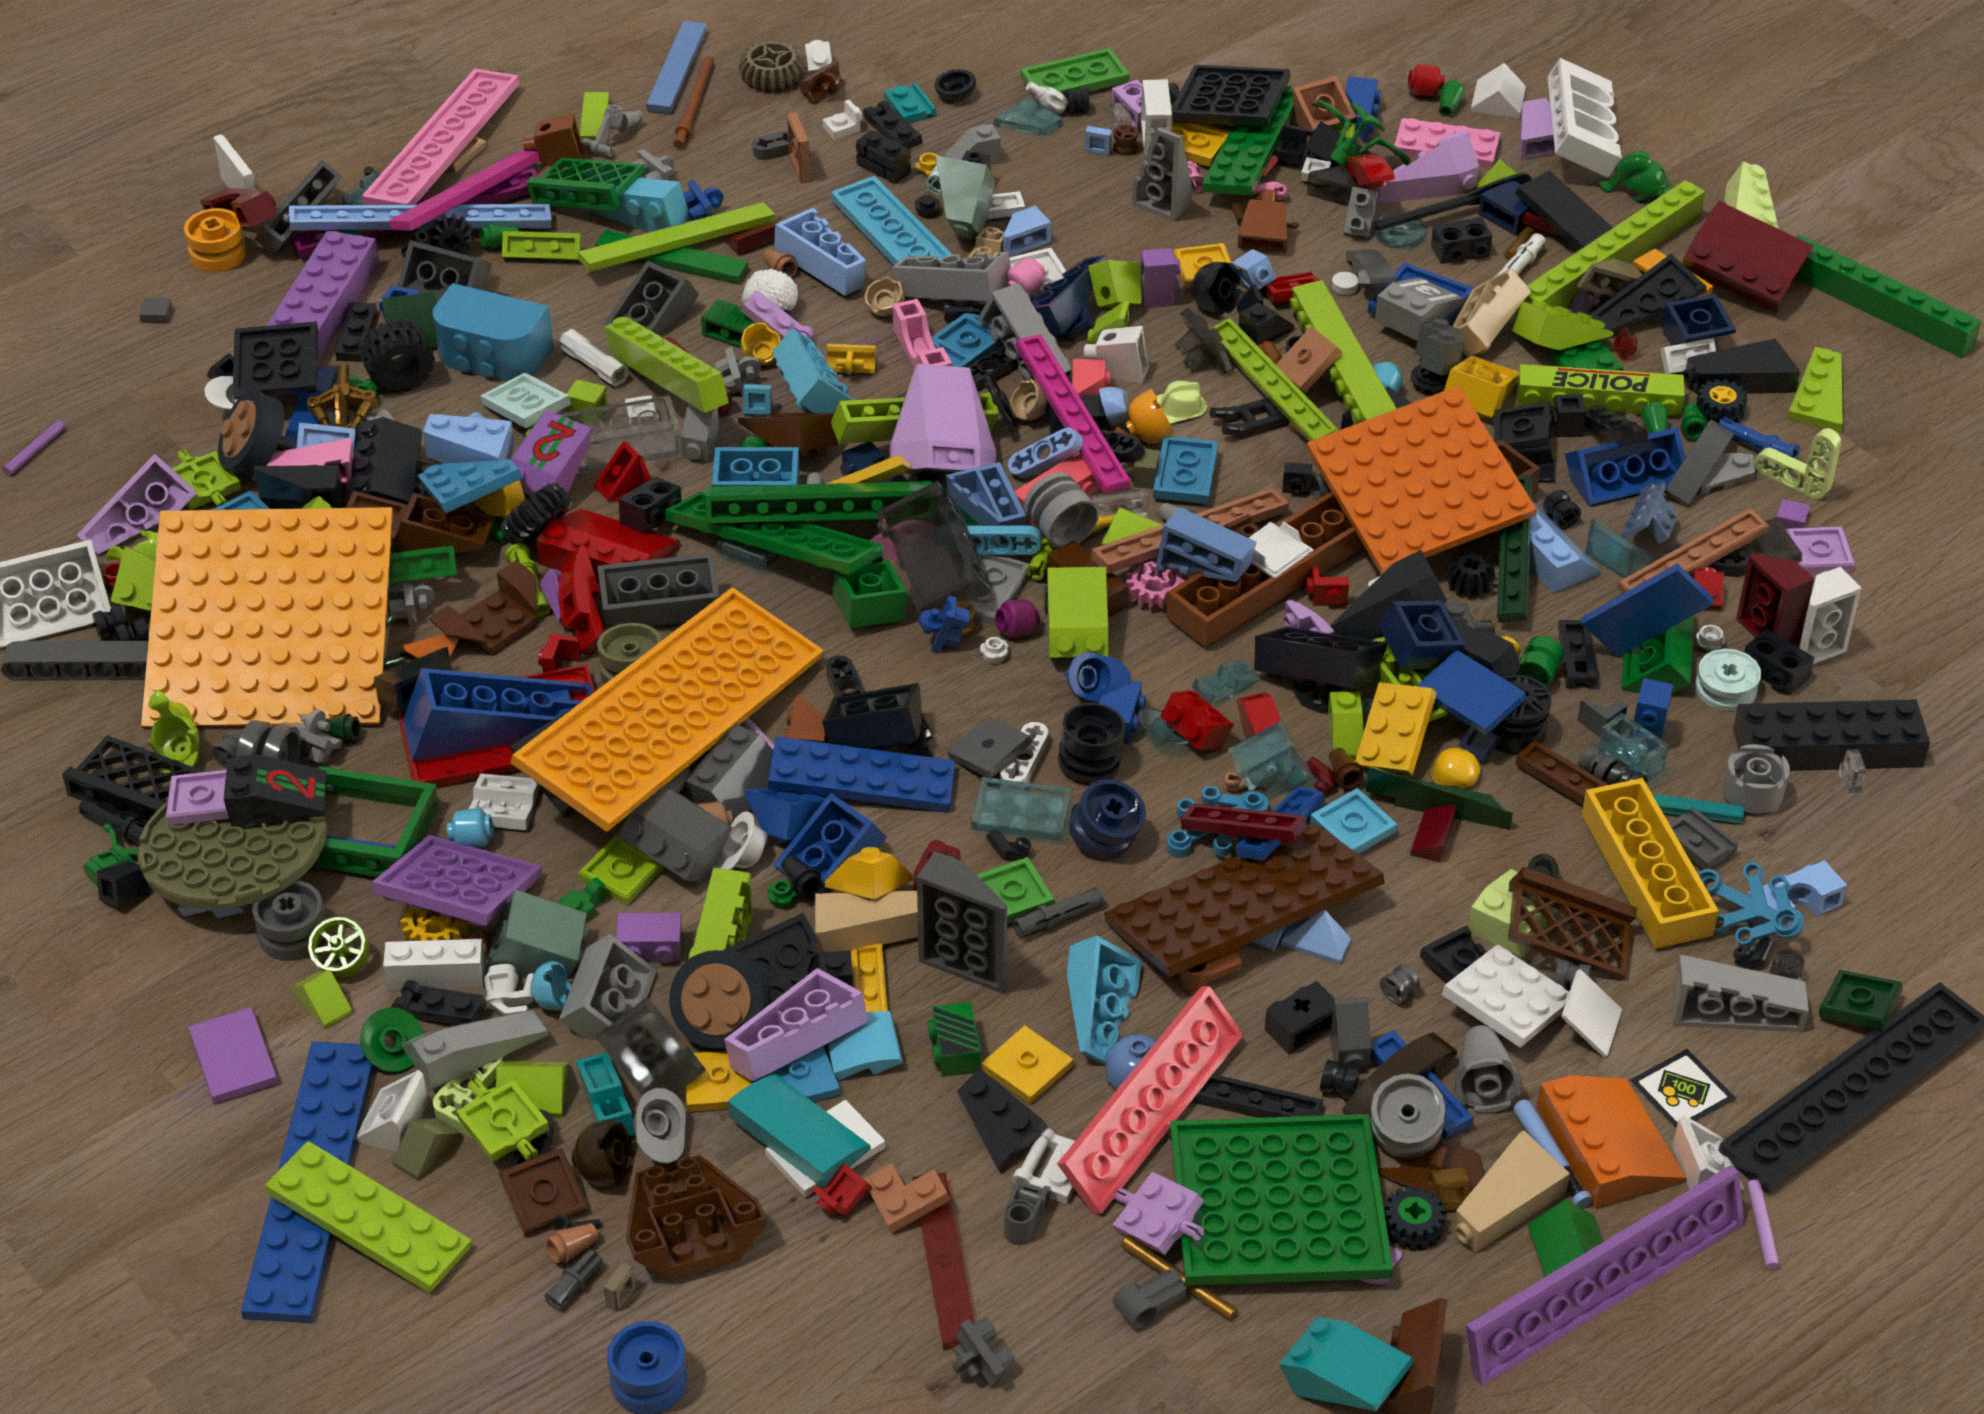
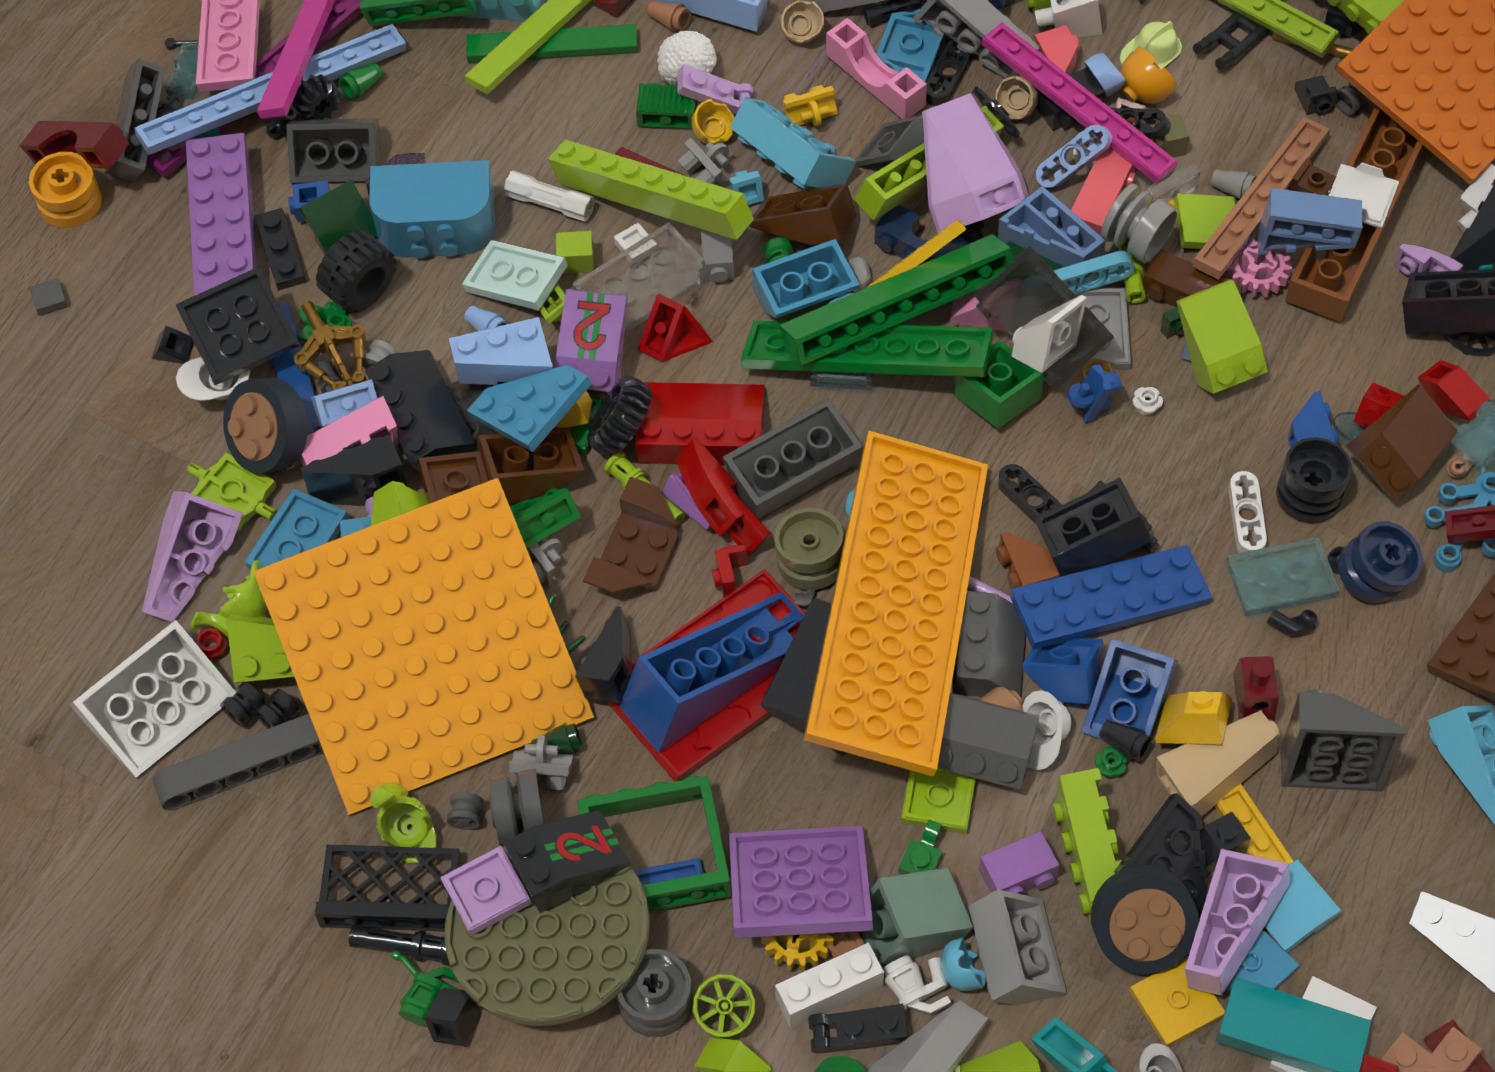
camera: 20 degrees left, 15 degrees up
(34, 447) = (22, 515): medium lavender bar -> none
(232, 167) = (37, 97): white tile -> none
(429, 645) = (591, 608): orange slope -> none
(471, 828) = (768, 810): medium azure head -> none
(506, 799) = (775, 763): white slope -> none
(541, 245) = (414, 77): lime plate -> none
(646, 505) = (718, 356): black brick -> none
(650, 1050) = (1105, 1004): clear smoke slope -> none
(655, 299) = (571, 108): dark grey slope -> none
(928, 562) = (1049, 335): none -> white slope
(955, 1039) = (1376, 866): green brick -> none
(989, 747) = (1213, 518): dark grey tile -> none
(1017, 618) = (1152, 358): magenta head -> none
(1018, 887) = (1330, 669): bright green plate -> none
(1027, 1064) = (1453, 864): yellow plate -> none
(1047, 916) = (1377, 690): dark grey pin -> none
(1096, 675) = (1270, 400): blue piece -> none
(1185, 470) = (1210, 123): dark azure plate -> none
(1185, 735) = (1403, 442): none -> reddish brown slope
(1228, 682) = (1384, 356): clear light blue slope -> none
(1327, 590) = (1419, 218): red bracket -> none

